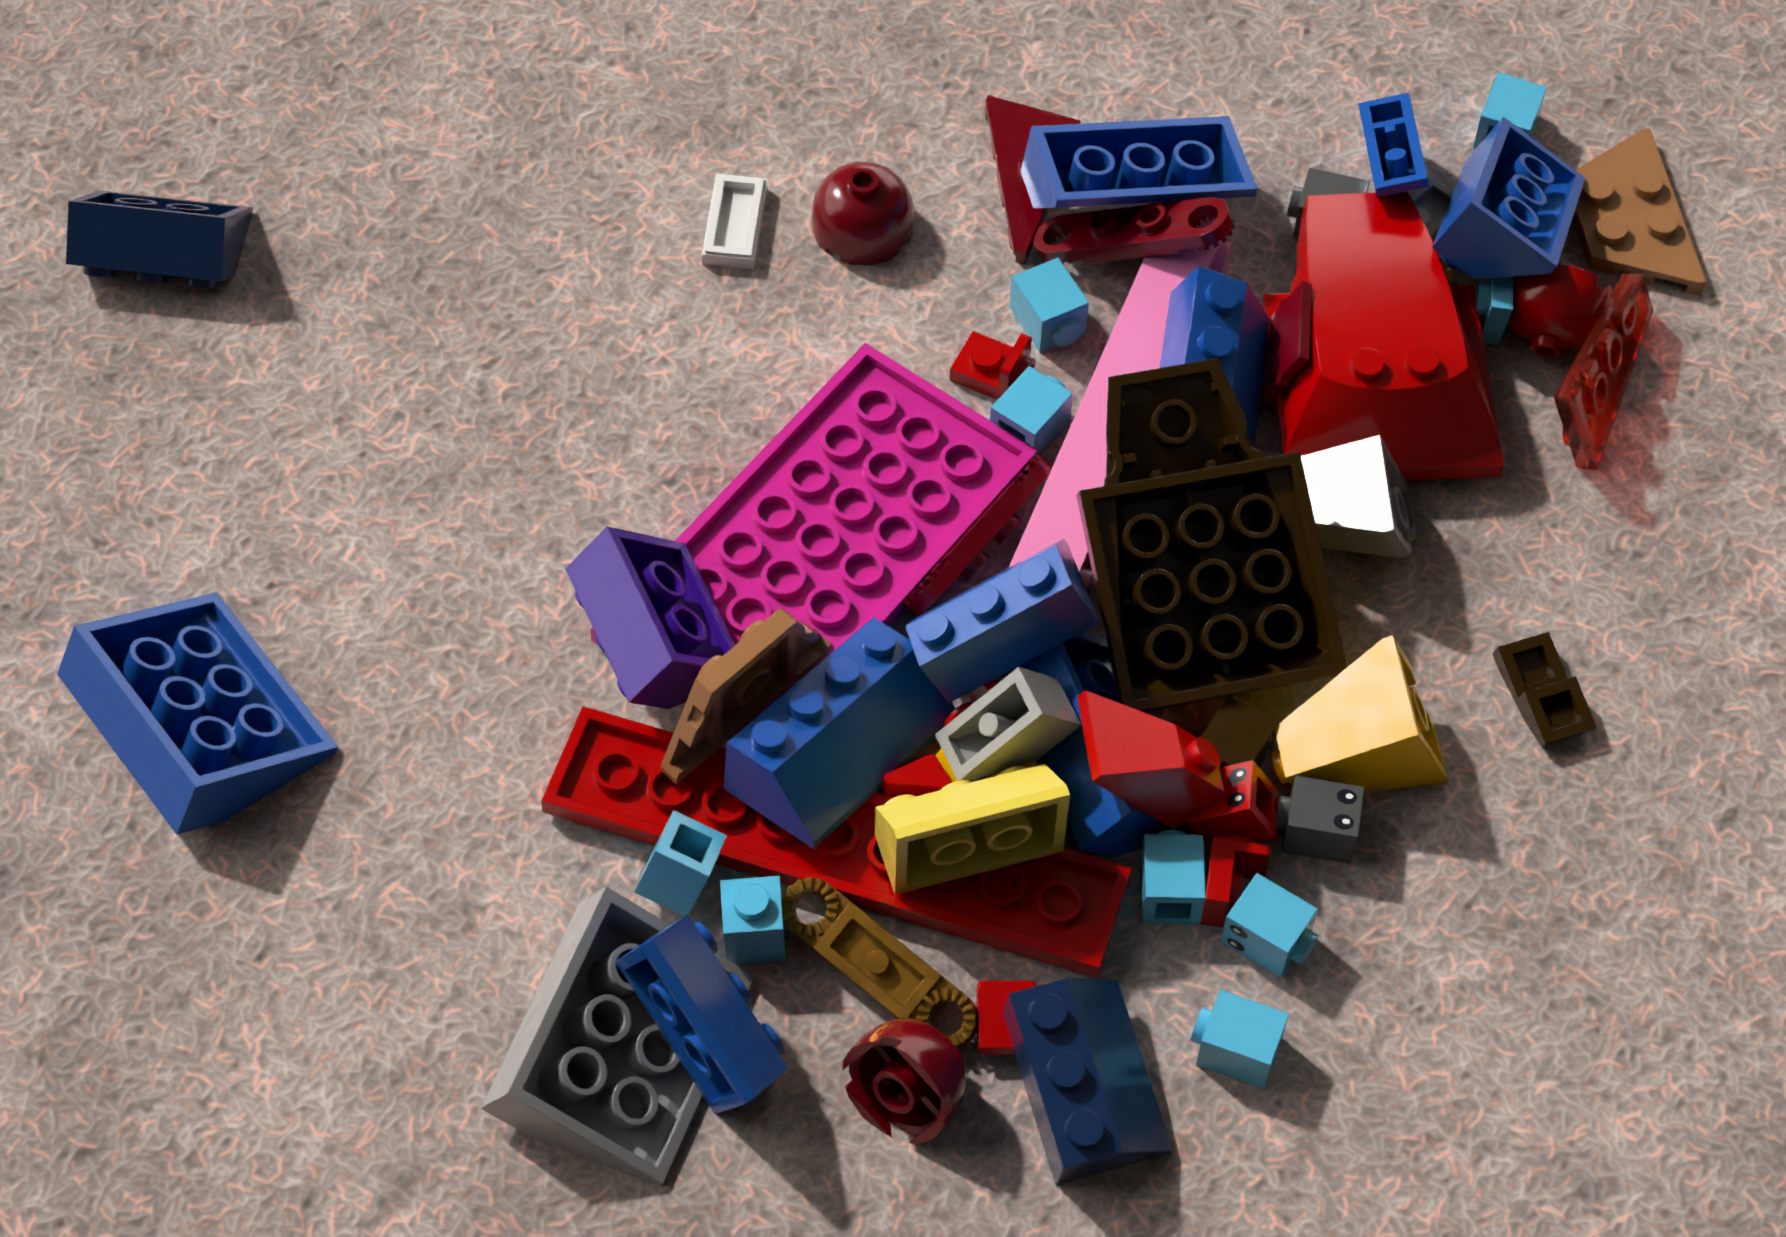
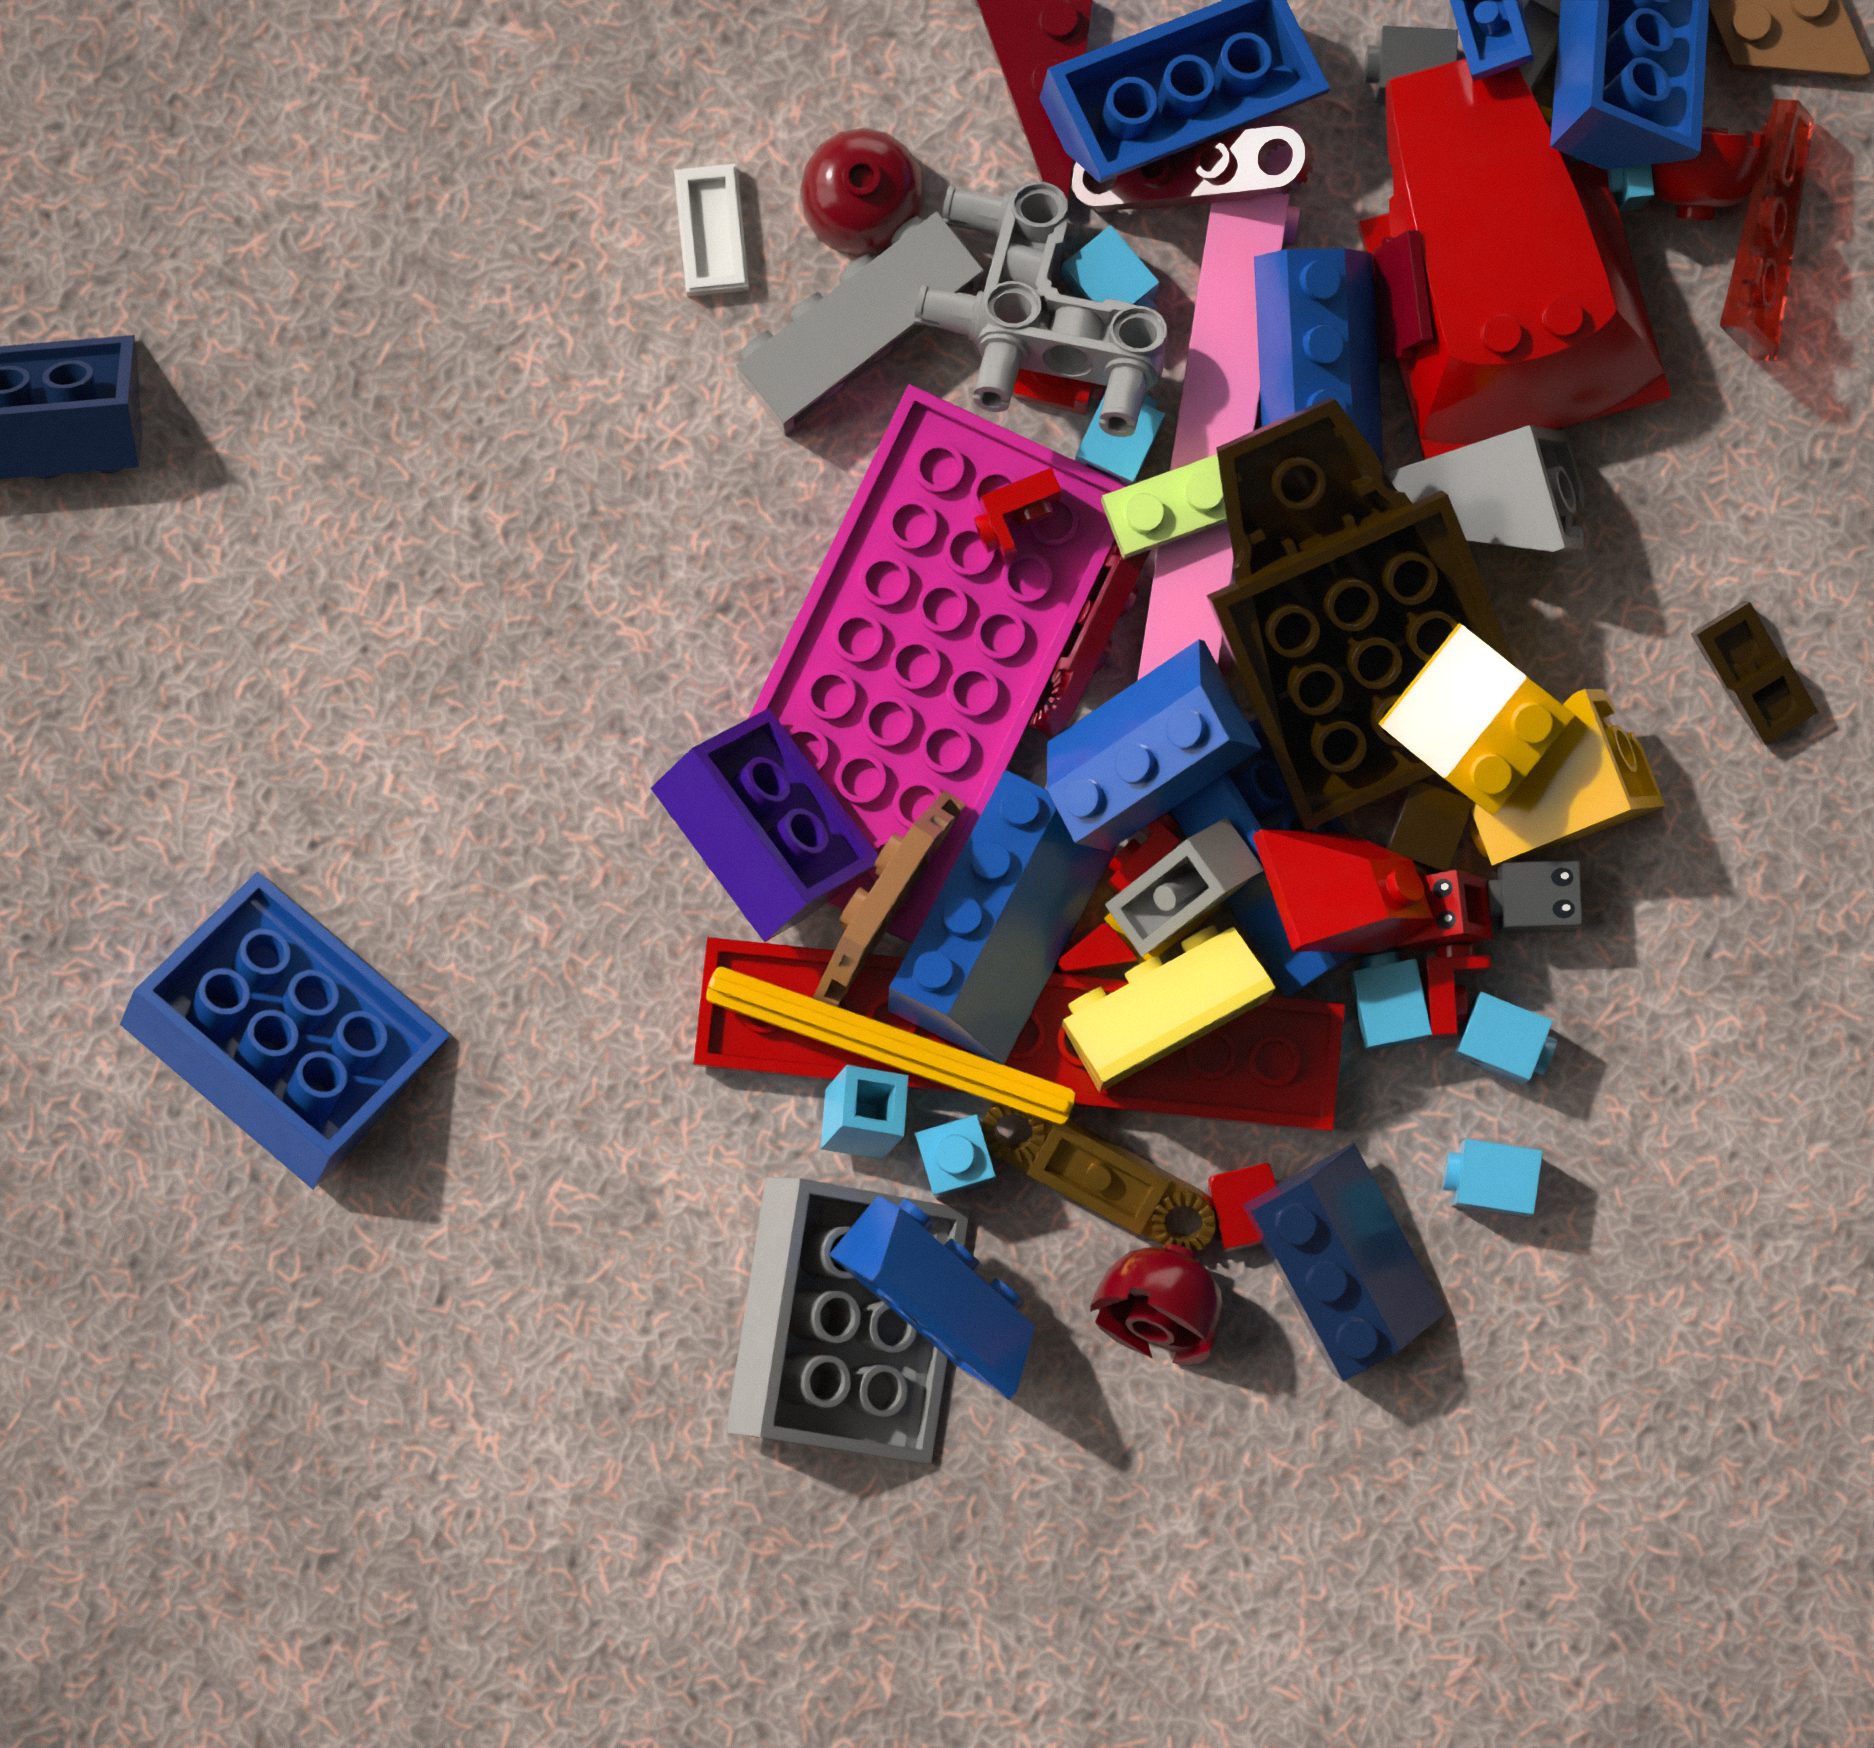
camera: 10 degrees left, 25 degrees up
(720, 812) = (891, 1045): none -> yellow axle
(836, 296) = (856, 324): none -> light grey brick
(930, 428) = (1022, 501): none -> red bracket
(976, 288) = (1053, 332): none -> light grey pin
(1056, 452) = (1166, 507): none -> yellowish green plate
(1292, 639) = (1476, 719): none -> slope

